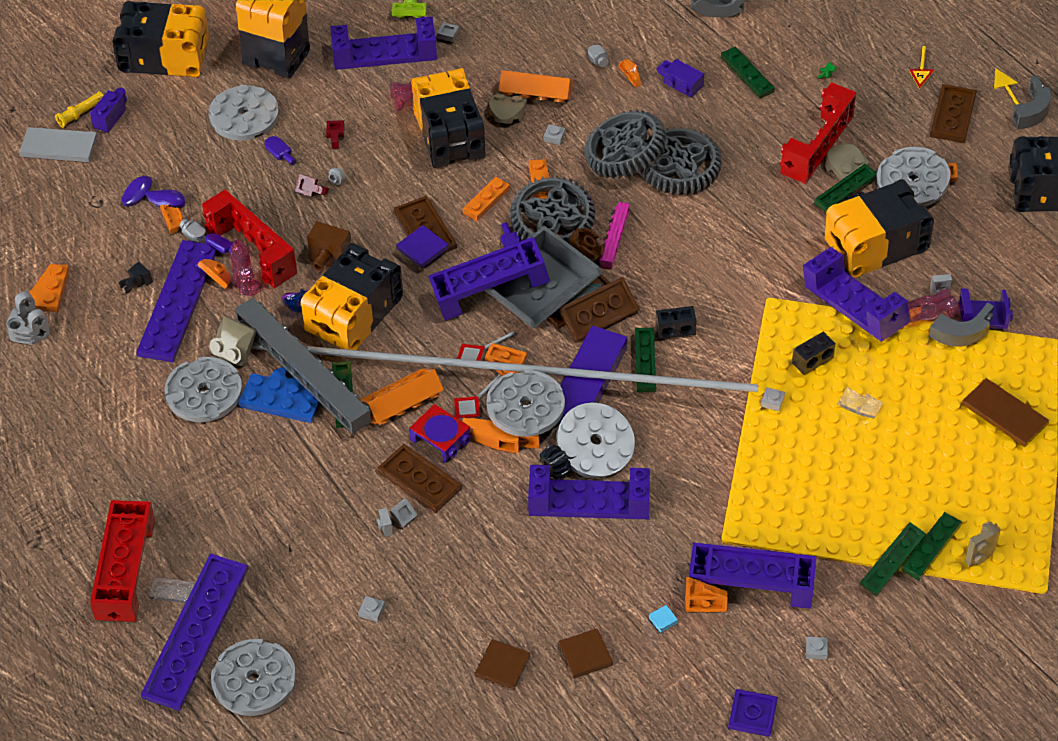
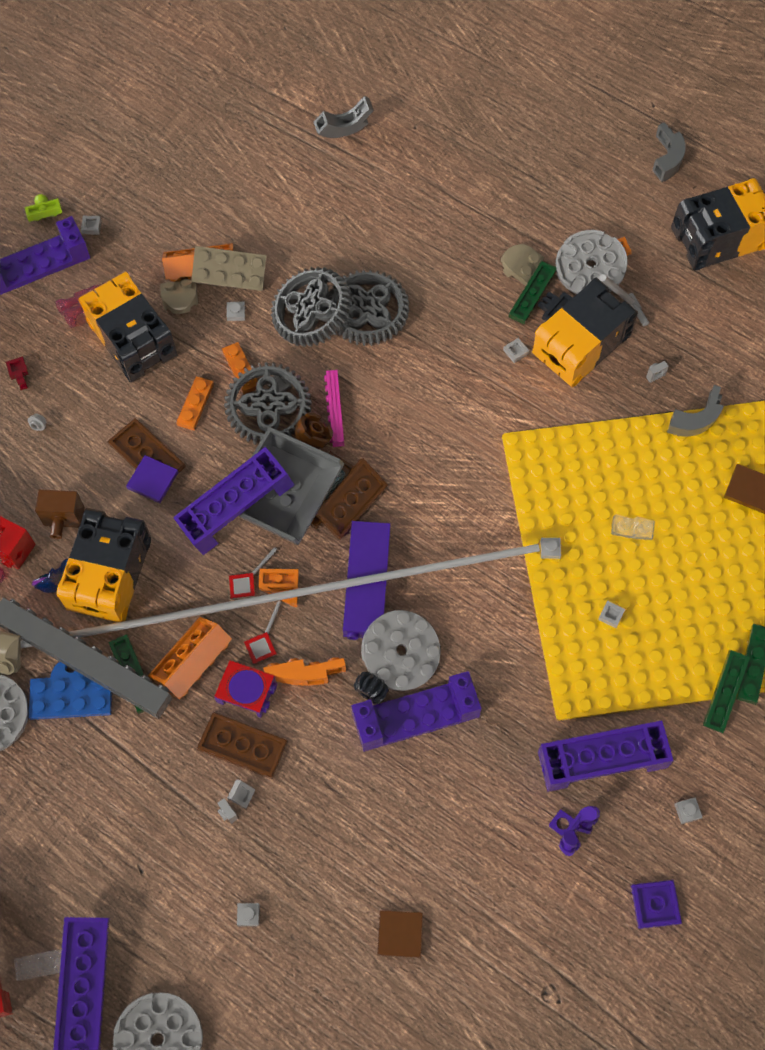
camera: 20 degrees left, 15 degrees up
(308, 186) = (13, 442): plate -> none
(508, 237) = (237, 445): dark purple piece -> none
(527, 420) = (326, 652): light grey plate -> none
(560, 94) = (228, 268): none -> dark tan plate
(585, 653) = (475, 893): reddish brown tile -> none
(598, 55) = (247, 211): light grey arm -> none
(631, 71) = (285, 220): orange plate -> none
(645, 357) = (412, 537): dark green plate -> none
(663, 618) = (534, 827): medium azure tile -> none
(675, 322) = (430, 491): black brick -> none
(681, 77) = (335, 213): dark purple brick -> none
(696, 623) = (583, 823): none -> dark purple piece
(704, 597) = (568, 794): orange wing -> none
(747, 72) = (395, 190): dark green plate -> none
(800, 159) = (478, 273): red plate -> none
(808, 466) = (611, 614): none -> light grey plate
(809, 231) = (516, 350): none -> light grey plate
(813, 353) = (572, 487): black brick -> none
(826, 71) = (469, 168): green plant -> none
(829, 281) = (587, 414): dark purple plate -> none
(921, 75) = (556, 148): piece -> none
(929, 306) = (655, 405): clear pink piece -> none
(939, 216) = (629, 298): none -> light grey bar
(953, 113) = (599, 181): reddish brown tile -> none
(970, 309) = (697, 390): dark purple panel -> none
(1002, 80) = (630, 134): yellow piece -> none

